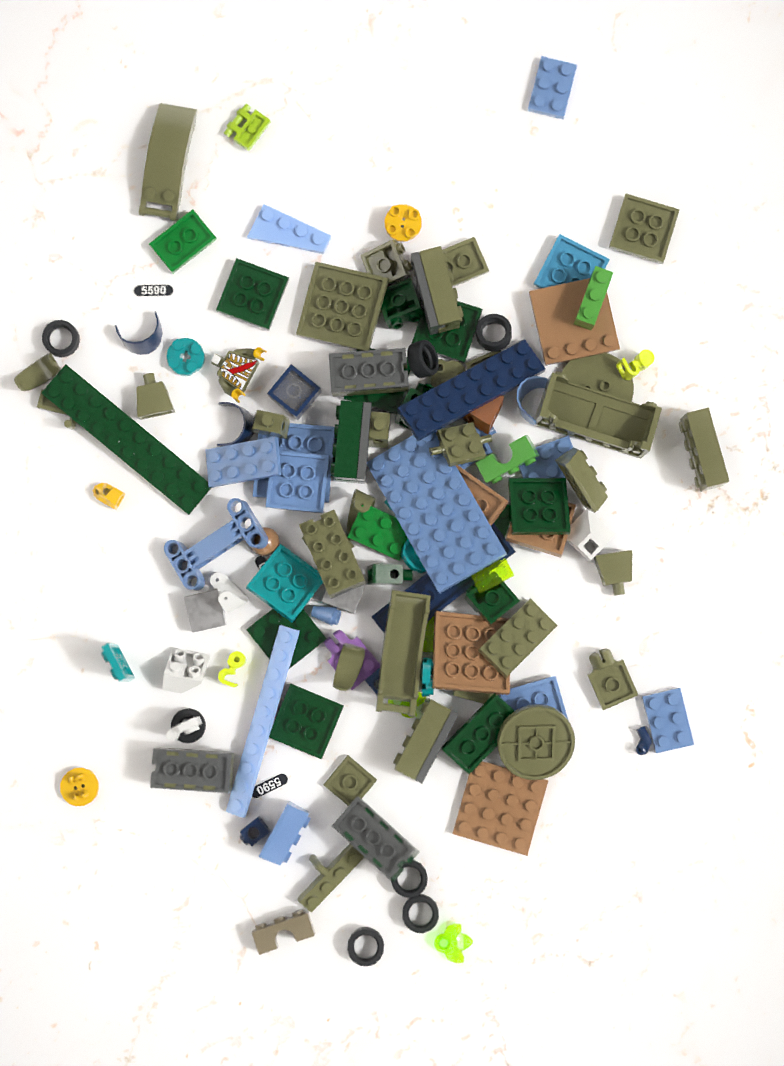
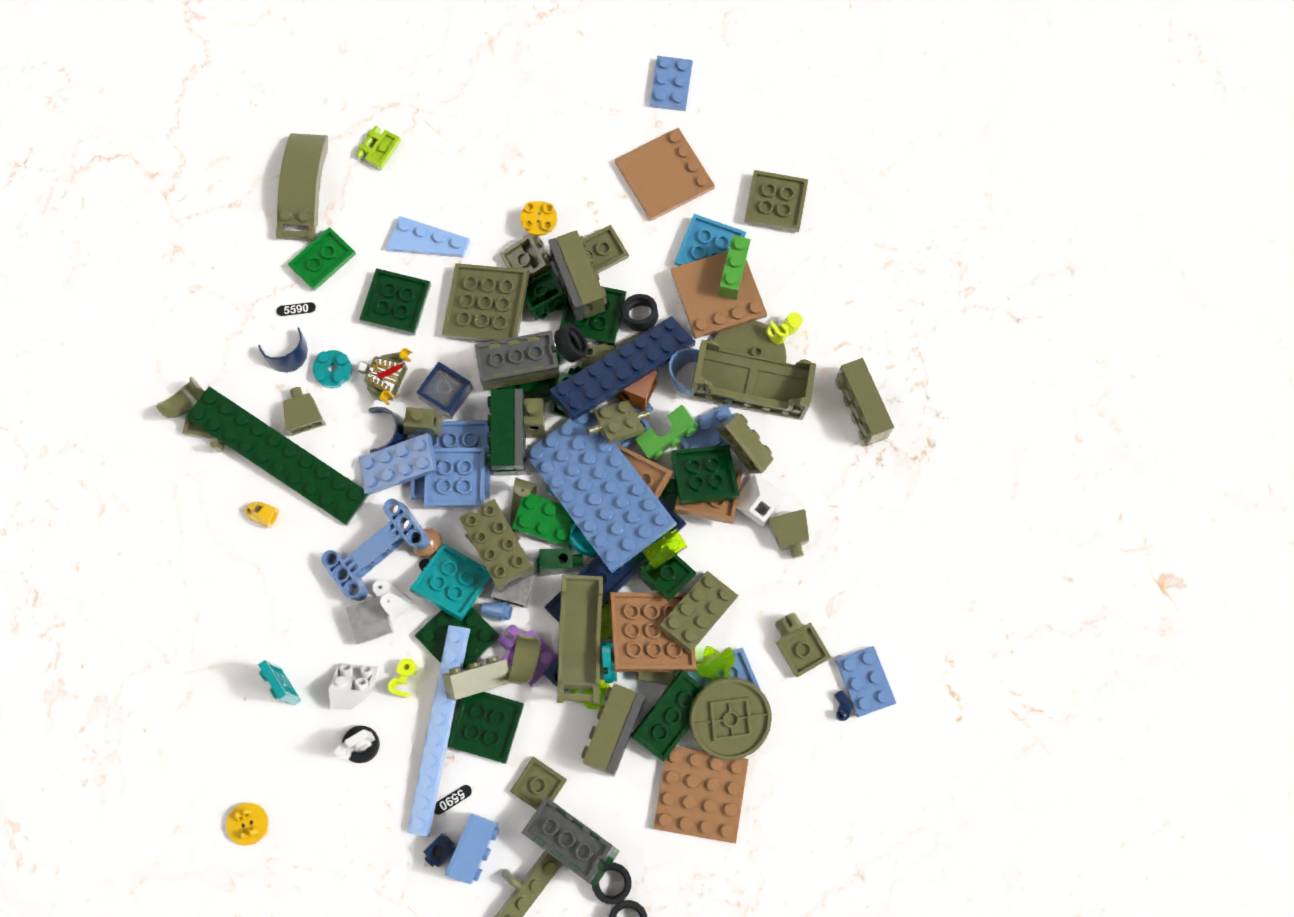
camera: 10 degrees left, 10 degrees down
(60, 324) = (196, 352): black tyre -> none
(192, 770) = (367, 789): dark grey piece -> none
(302, 678) = (476, 678): none -> brick
(528, 687) = (716, 662): none -> clear neon green plate
(534, 186) = (664, 174): none -> medium nougat plate

